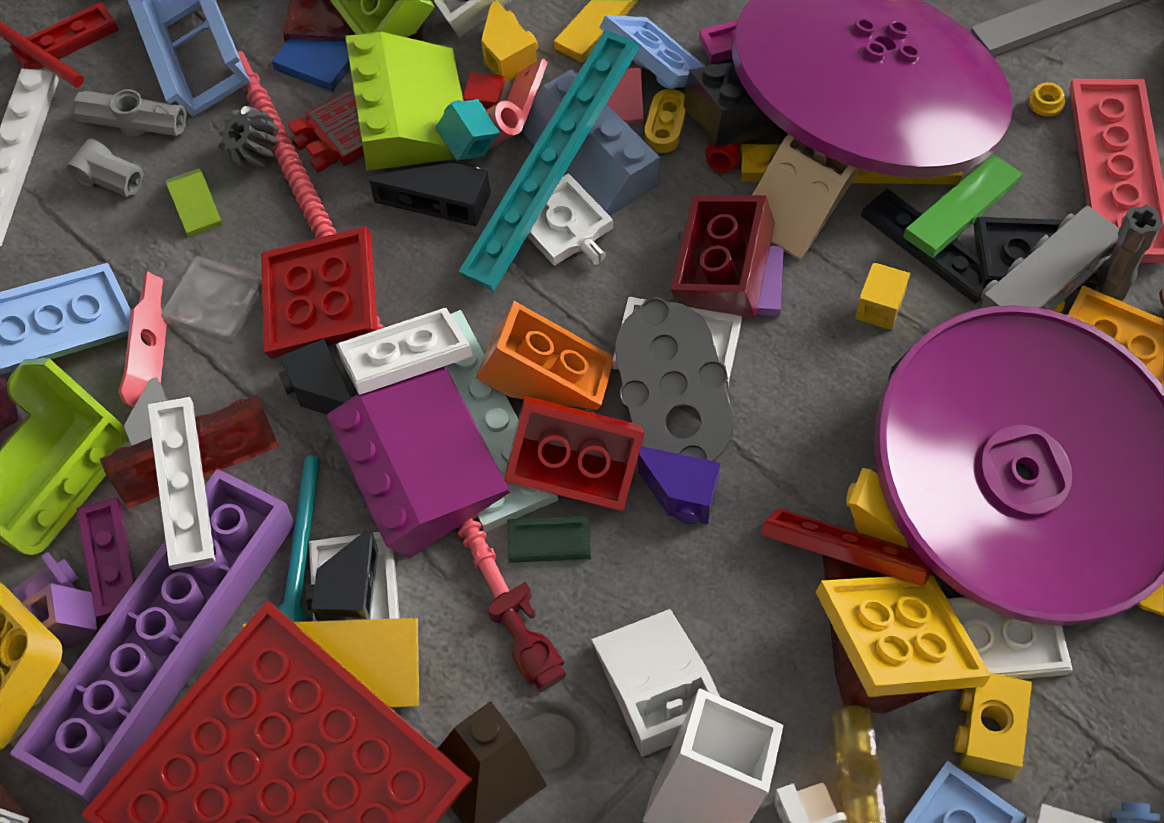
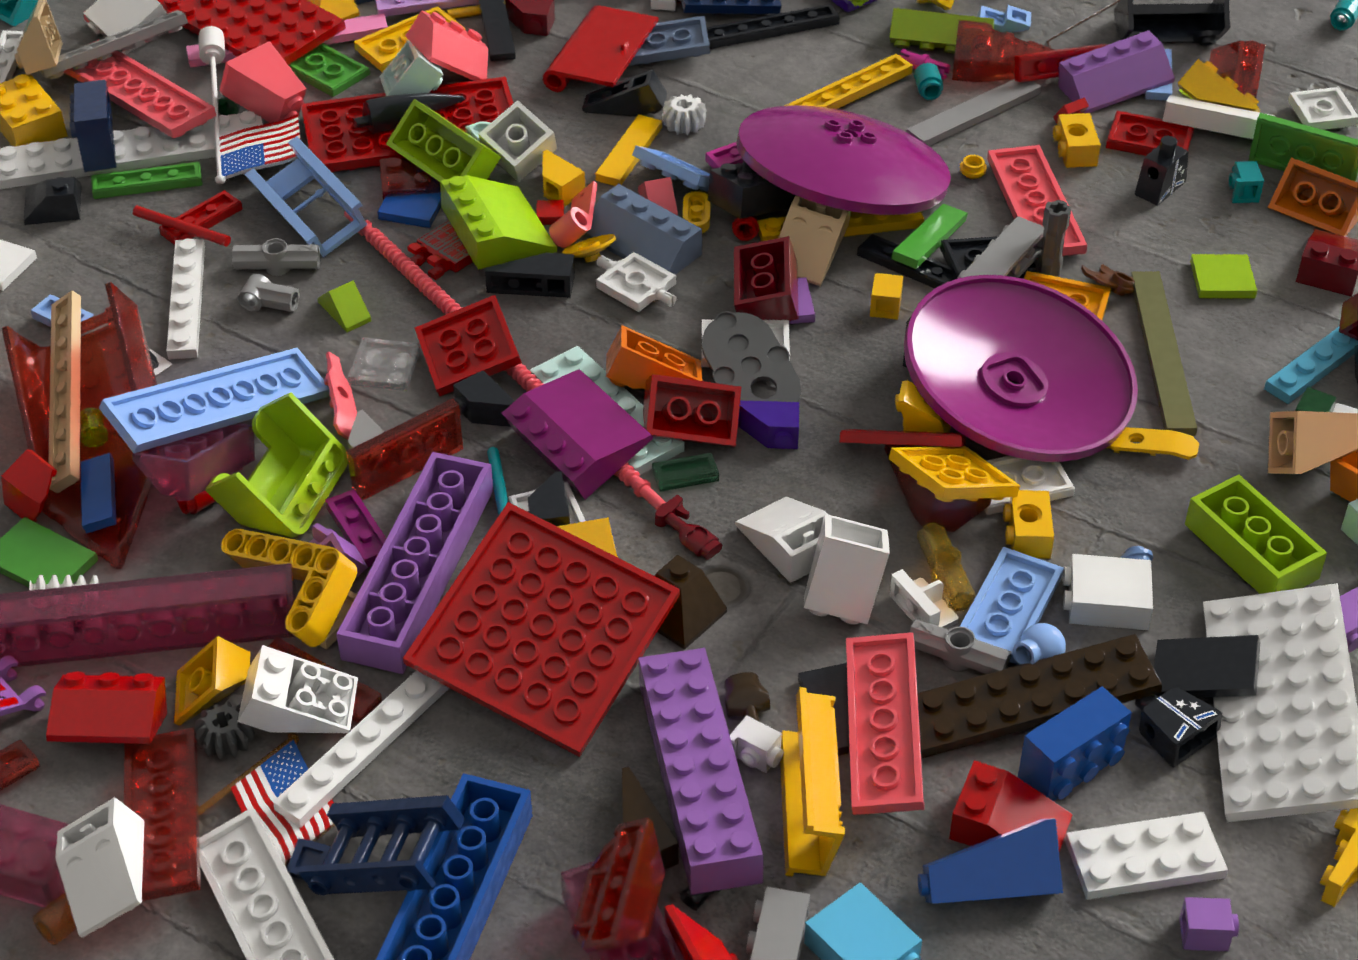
camera: 15 degrees left, 15 degrees down
(181, 483) = (415, 454): white plate -> none
(248, 137) = (379, 258): dark grey gear -> none
(403, 350) = (547, 366): white tile -> none
(467, 129) = (551, 229): teal brick -> none
(508, 156) = (591, 247): none -> yellow dish
(548, 160) = (620, 240): teal plate -> none

